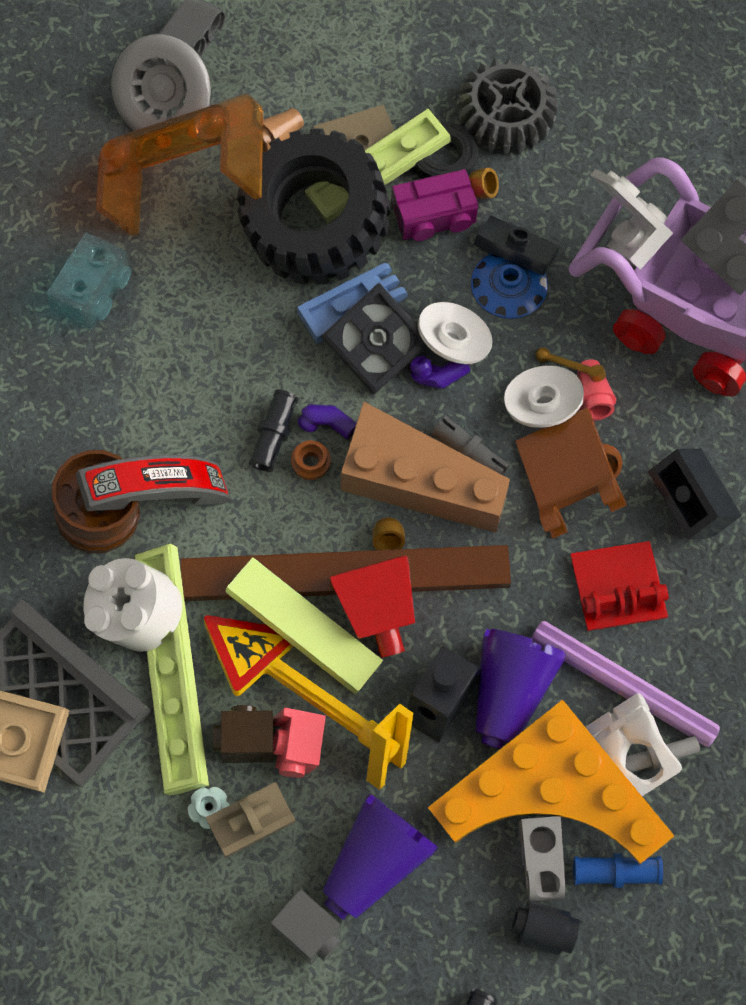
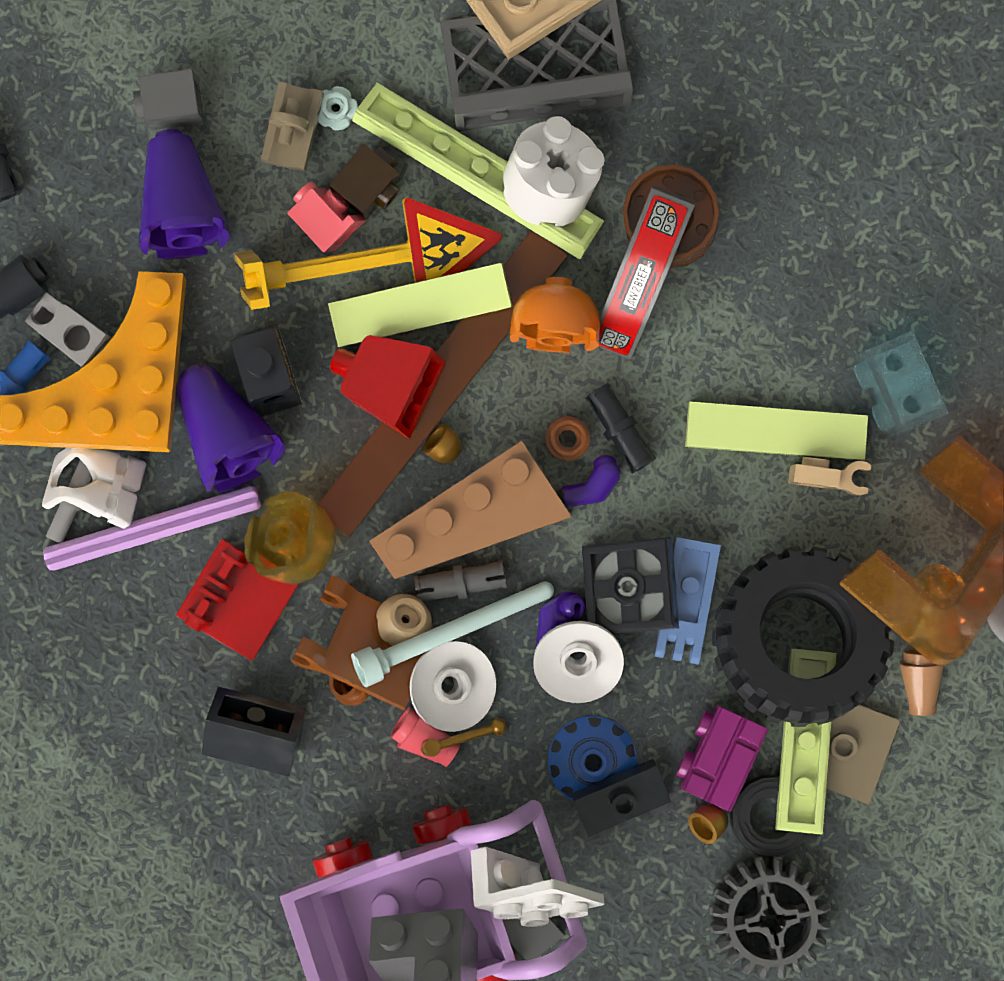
camera: 130 degrees right, 20 degrees up
(188, 337) = (776, 431): none -> yellowish green tile
(196, 285) = (816, 473): none -> tan plate
(232, 523) = (555, 317): none -> orange cylinder
(540, 466) = (393, 609): none -> tan plate
(547, 573) = (290, 539): none -> clear yellow cylinder
(579, 444) = (375, 663): none -> light aqua piece

